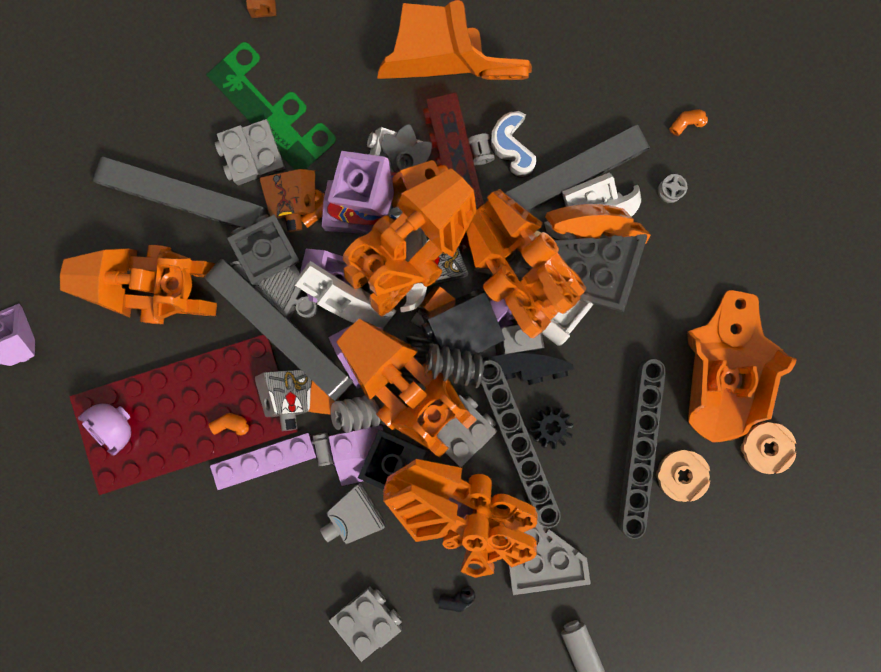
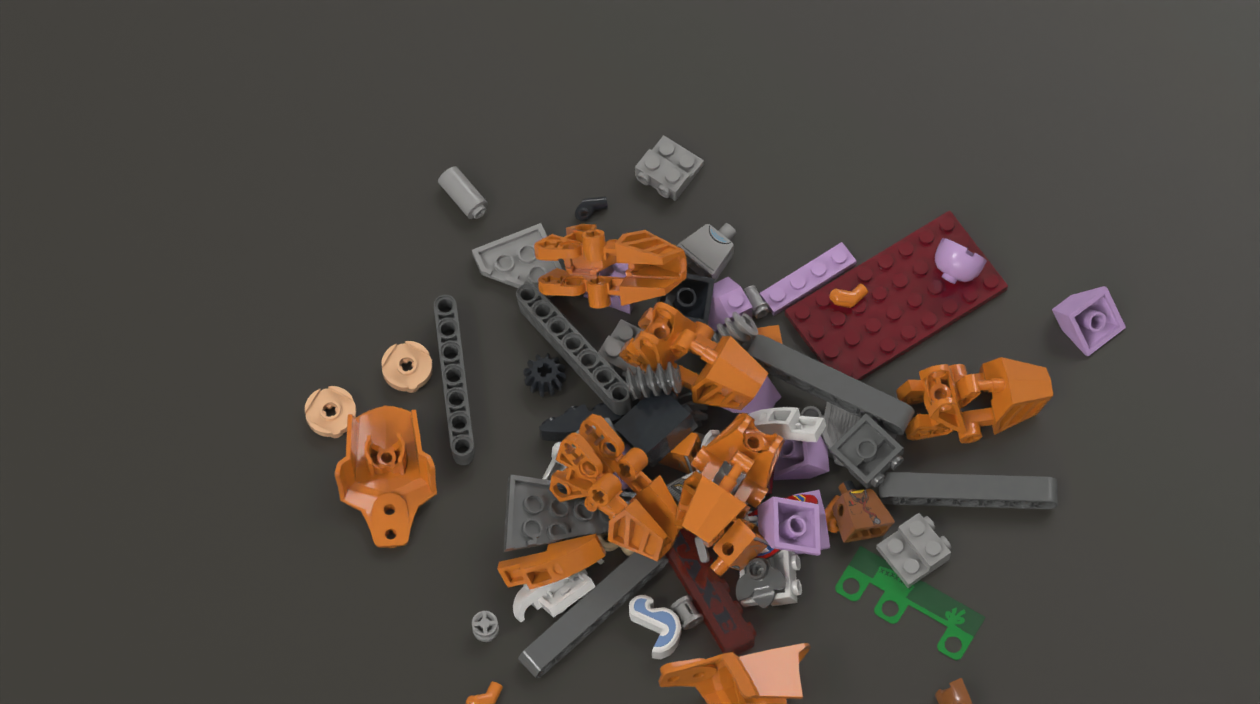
camera: 170 degrees right, 20 degrees down
(284, 395) = (805, 330): torso -> none

